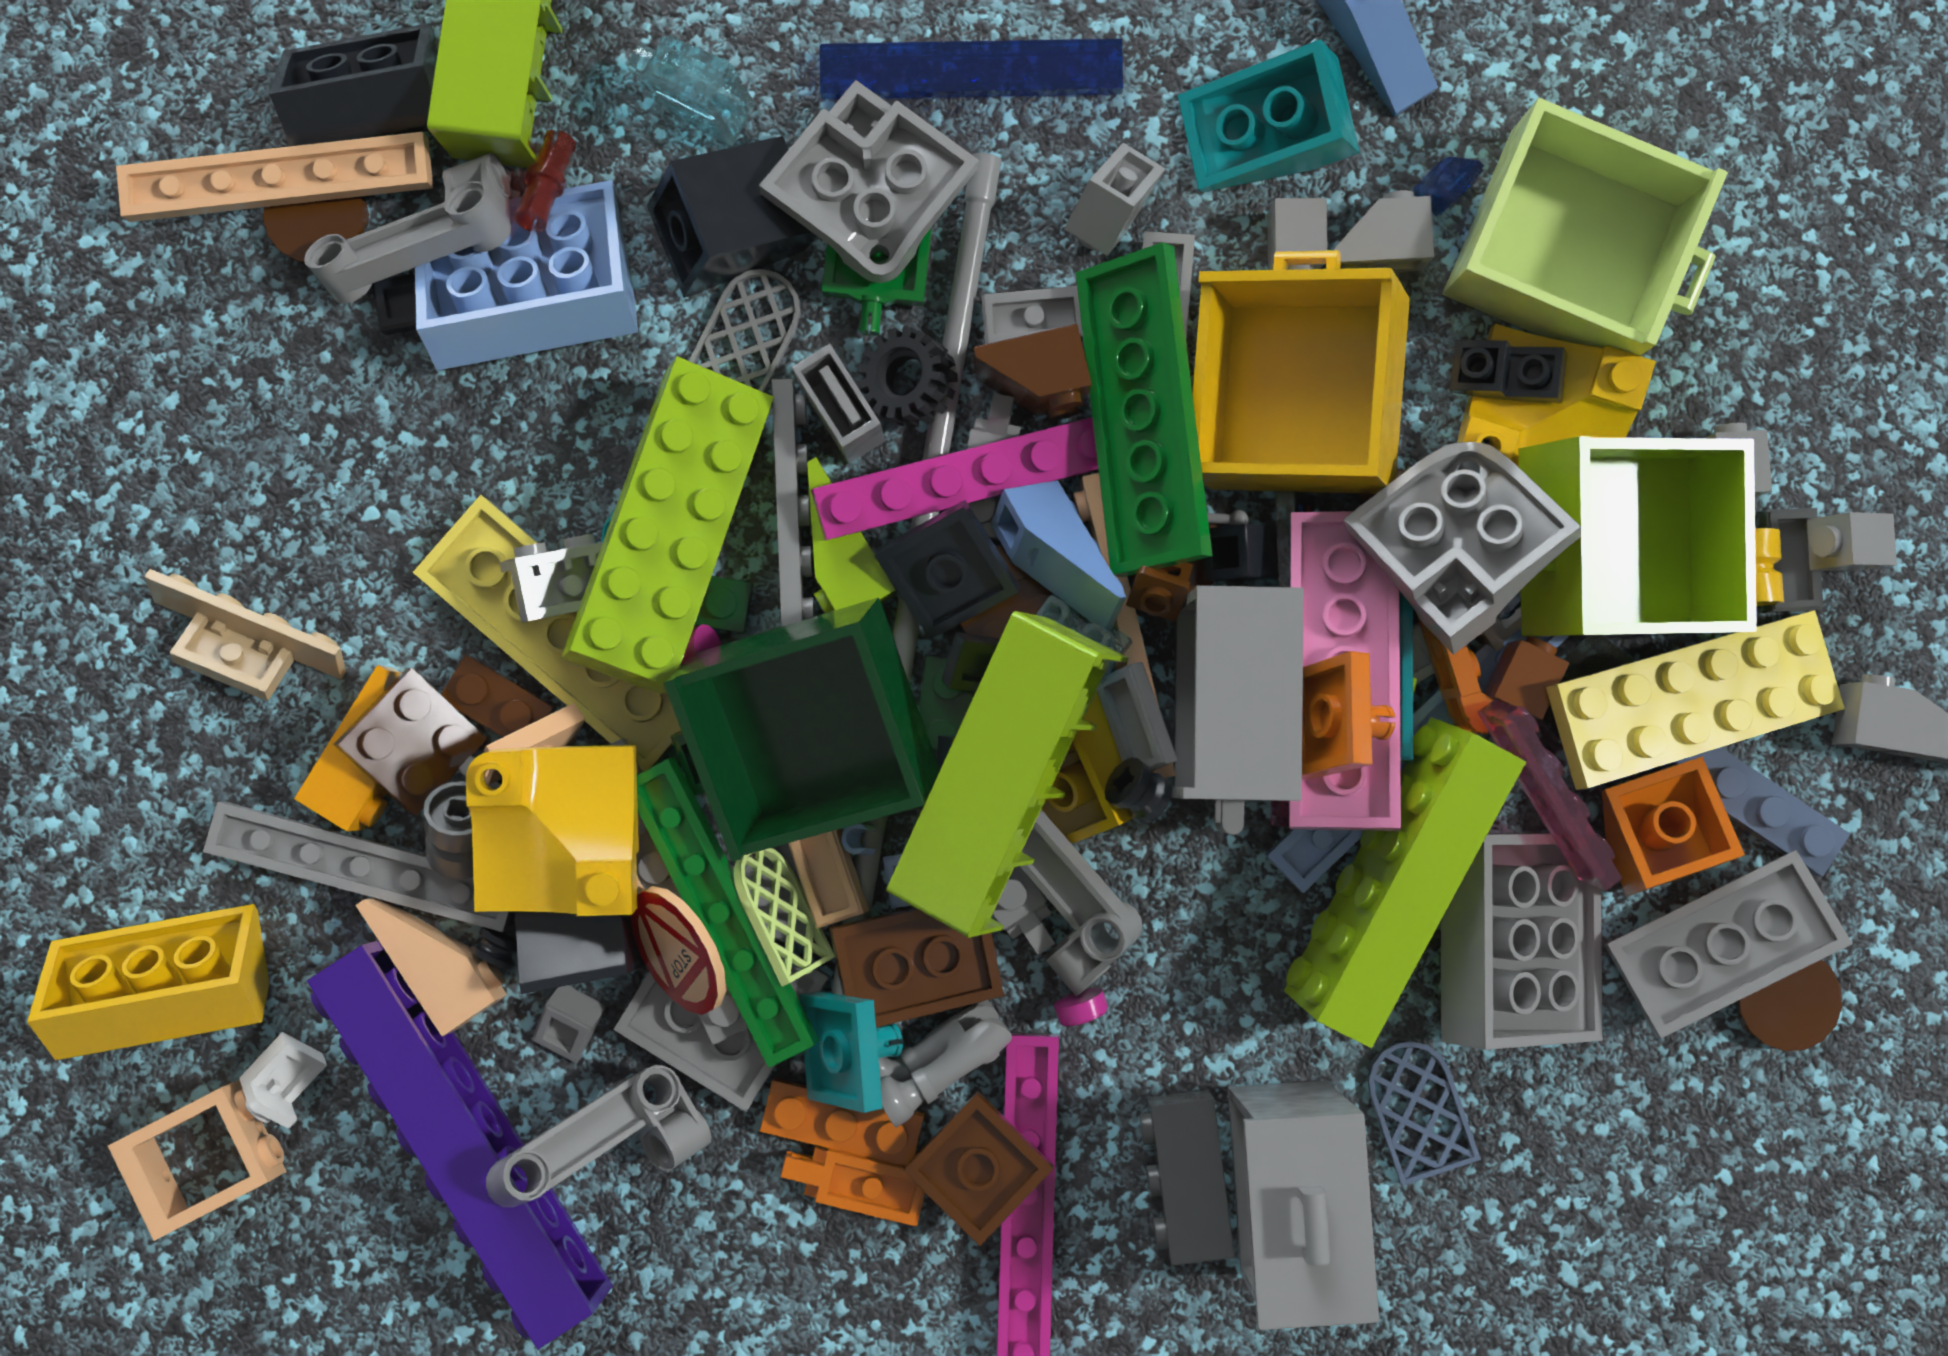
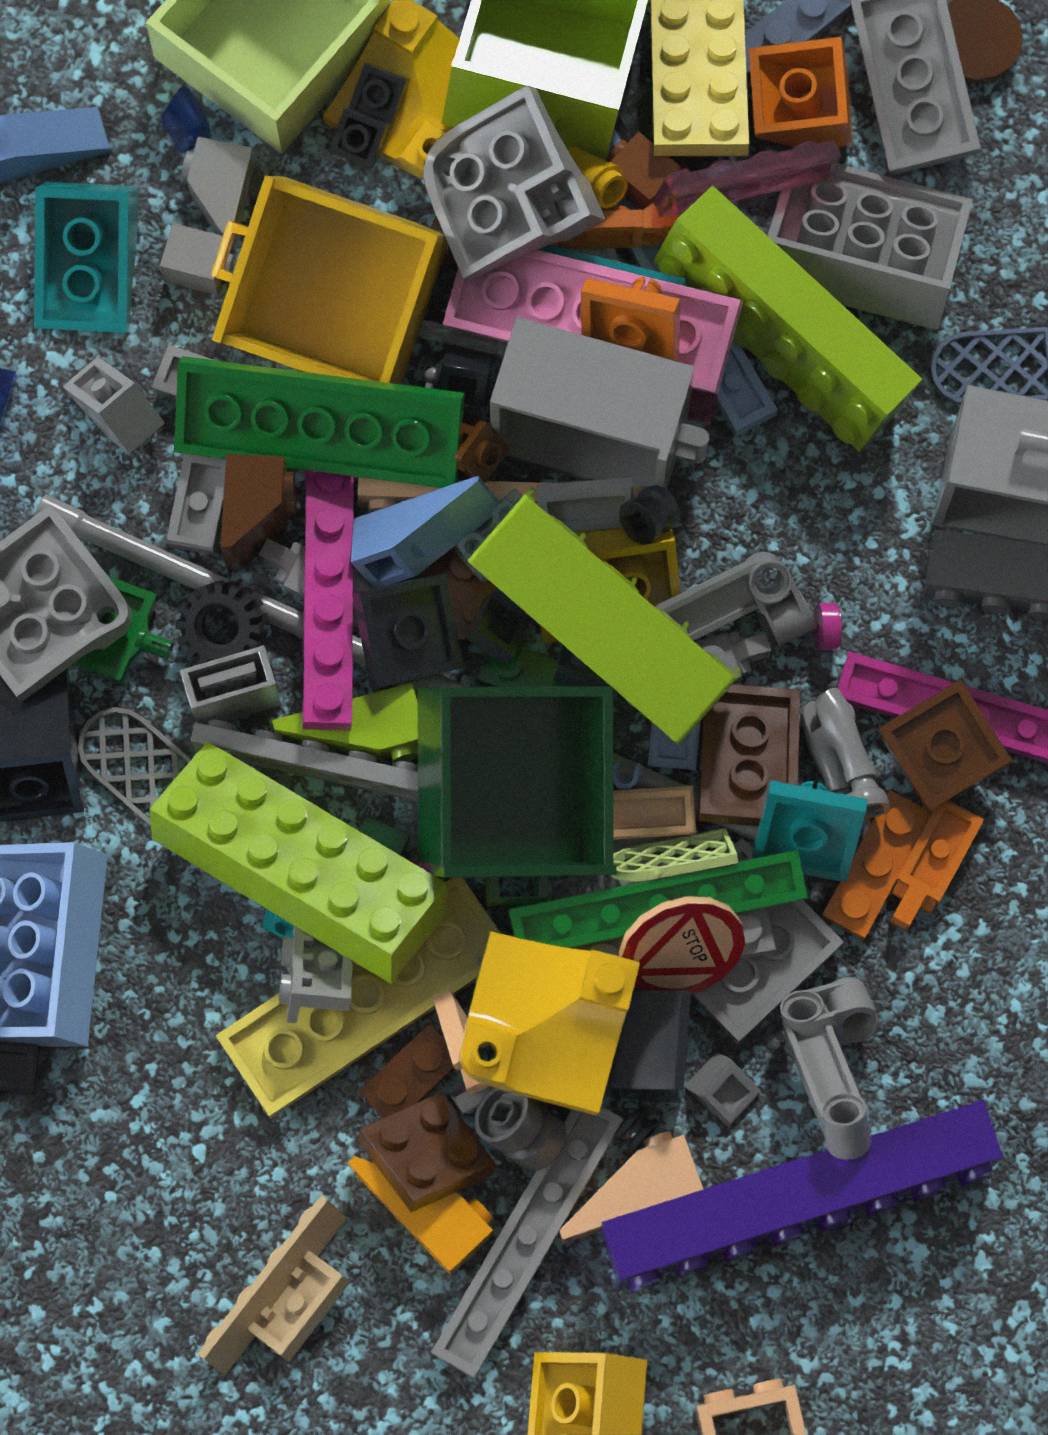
camera: 75 degrees left, 10 degrees down
(279, 1079) = (701, 1358): white bracket -> none
(1505, 638) = (604, 177): none -> yellow cone

